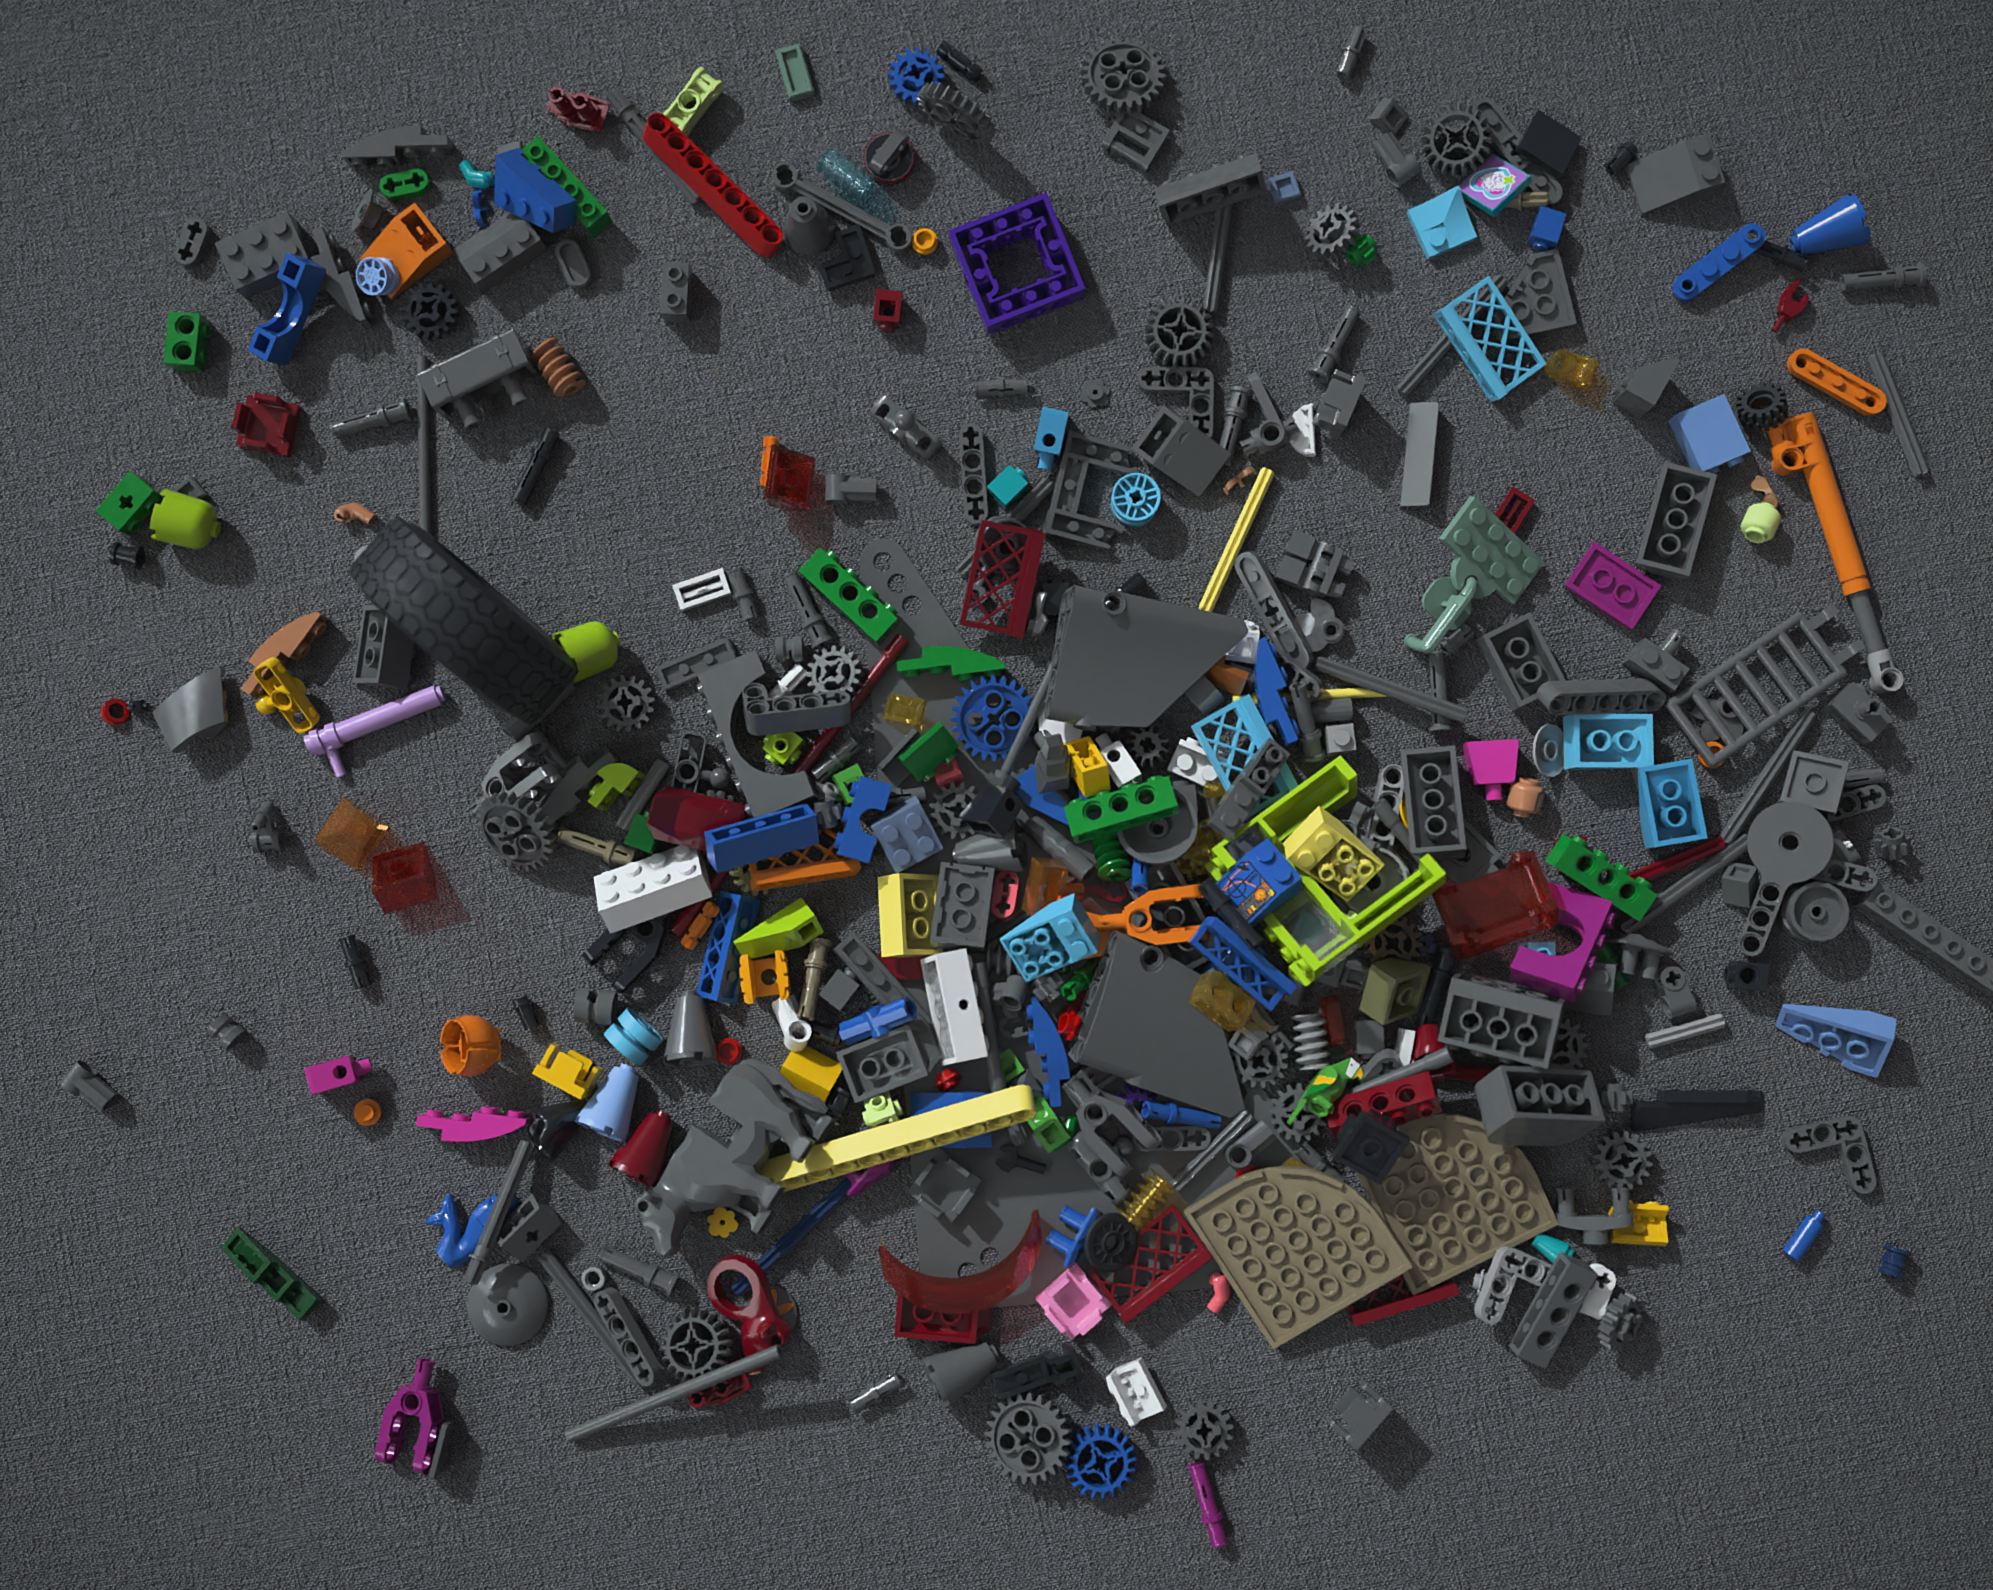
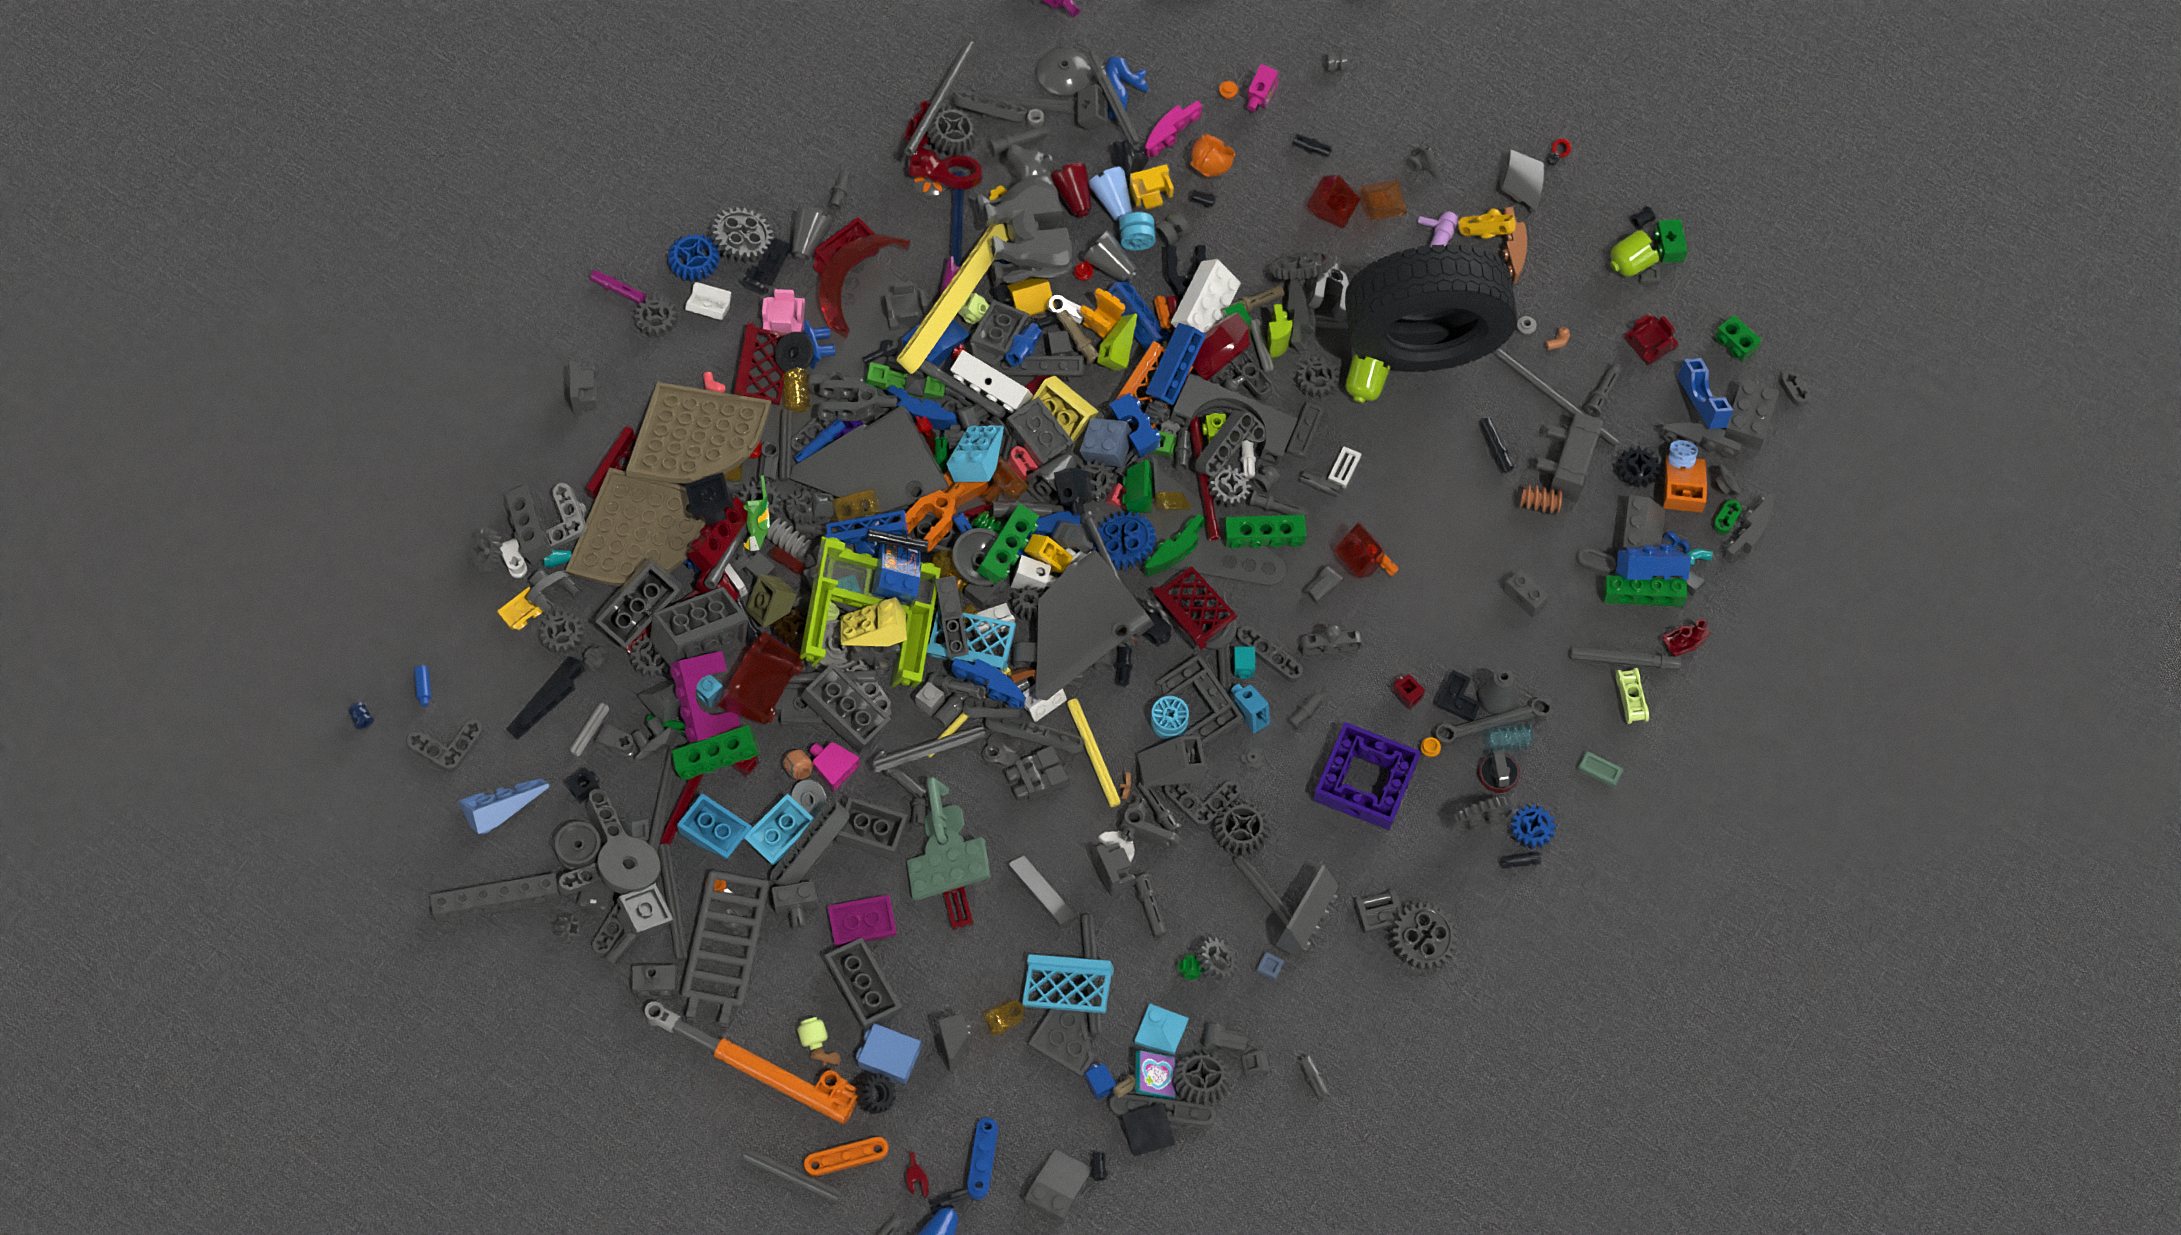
camera: 125 degrees right, 20 degrees down
(706, 174) = (1580, 658): red beam -> none

